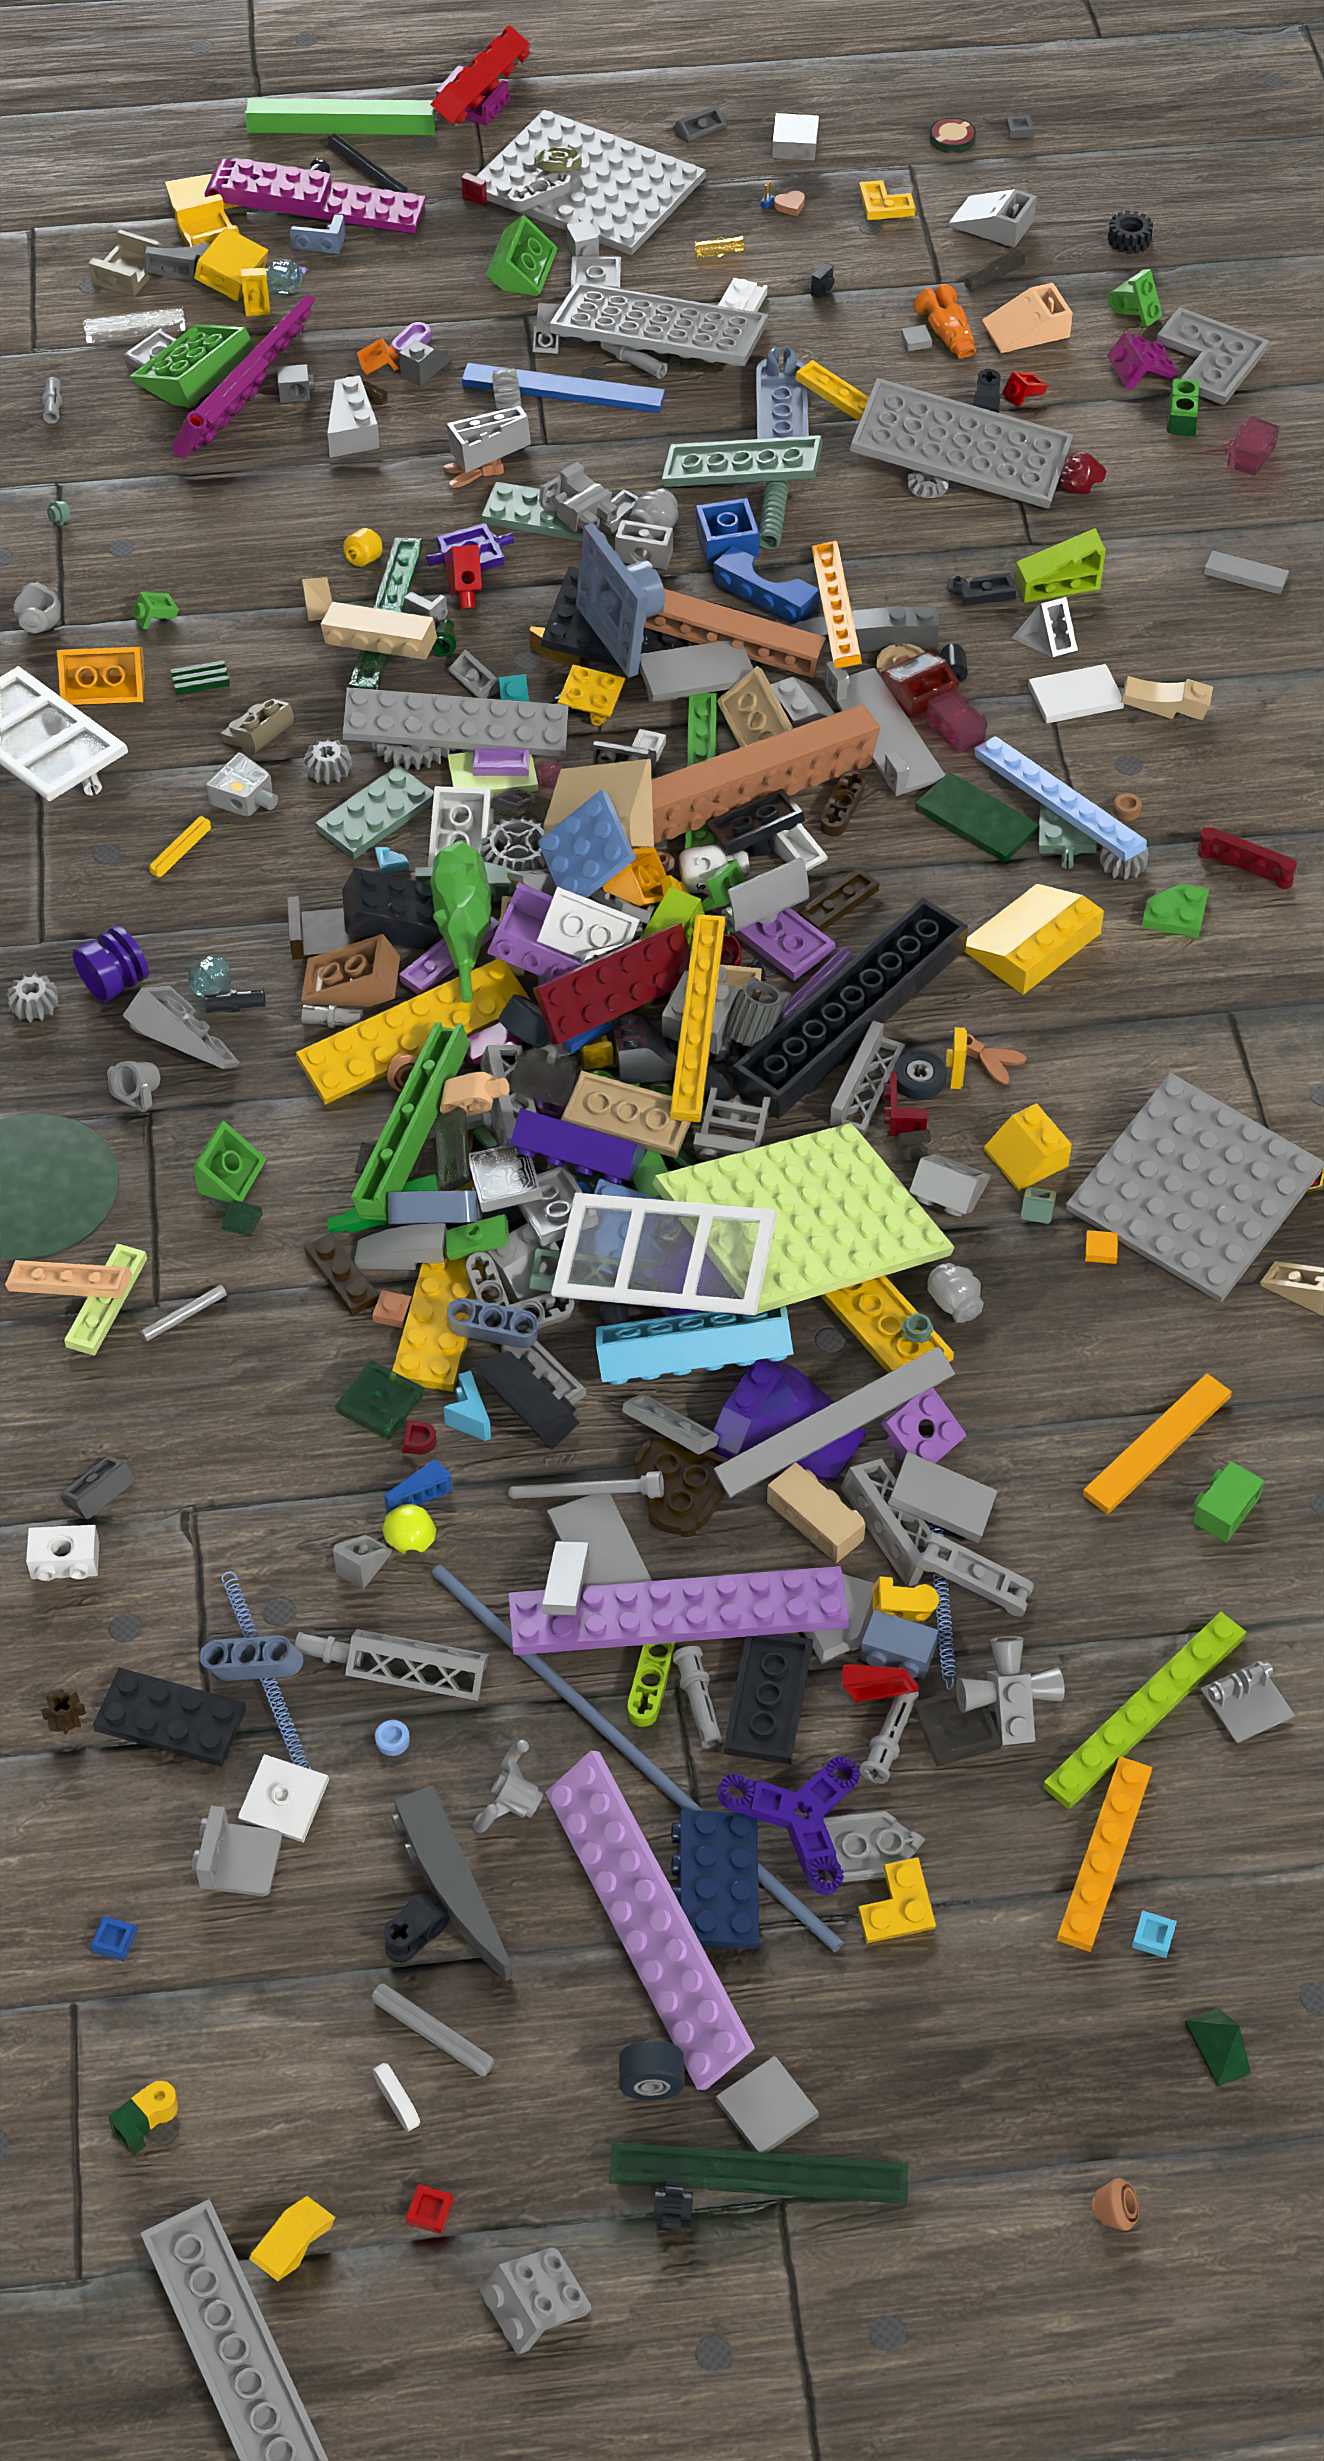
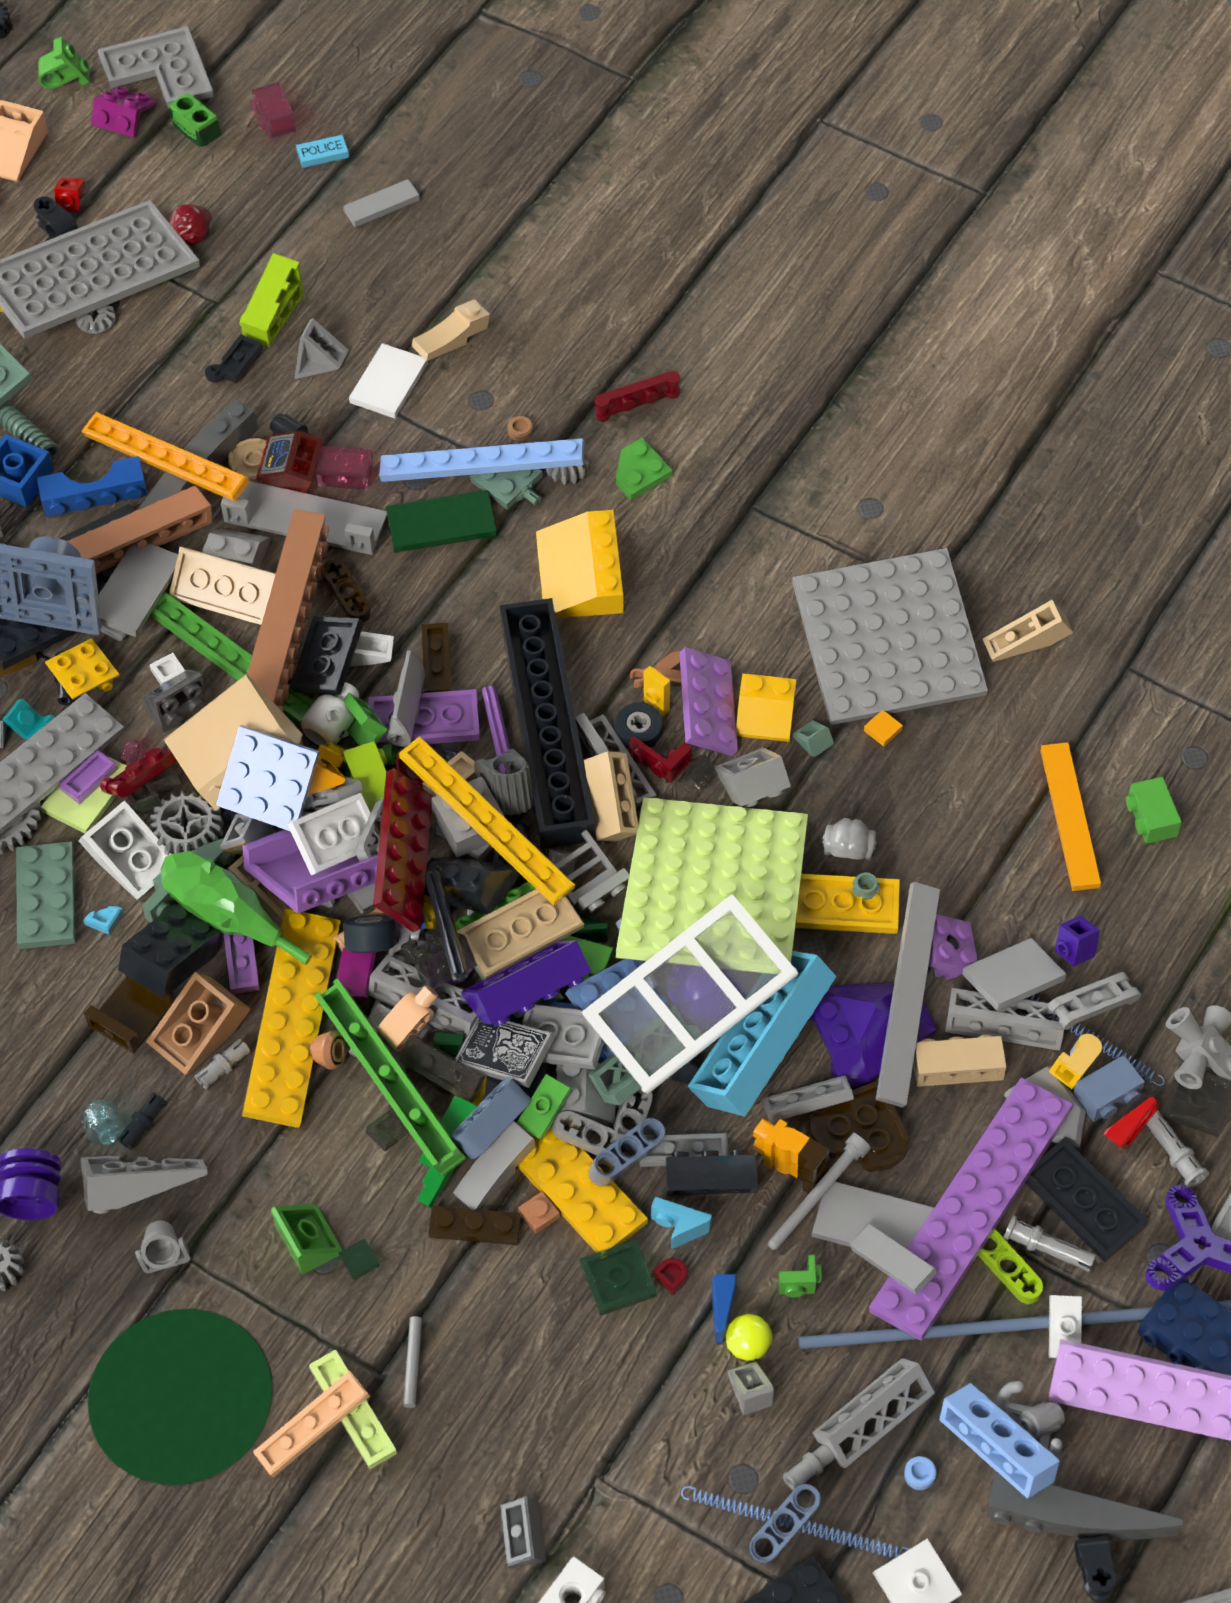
camera: 50 degrees left, 5 degrees up
(462, 1768) = (999, 1440): none -> light blue brick
(487, 1528) = (800, 1282): none -> bright green bracket
(529, 786) = (138, 773): none -> dark red plate
(569, 1053) = (446, 926): none -> black axle
(601, 1438) = (791, 1152): none -> light orange hips
(631, 1754) = (1064, 1321): none -> white plate
(819, 1092) = (611, 796): none -> tan brick
(987, 1101) = (708, 701): none -> medium lavender plate
(1023, 1522) = (1077, 940): none -> dark purple brick
(1252, 503) = (322, 151): none -> medium azure tile

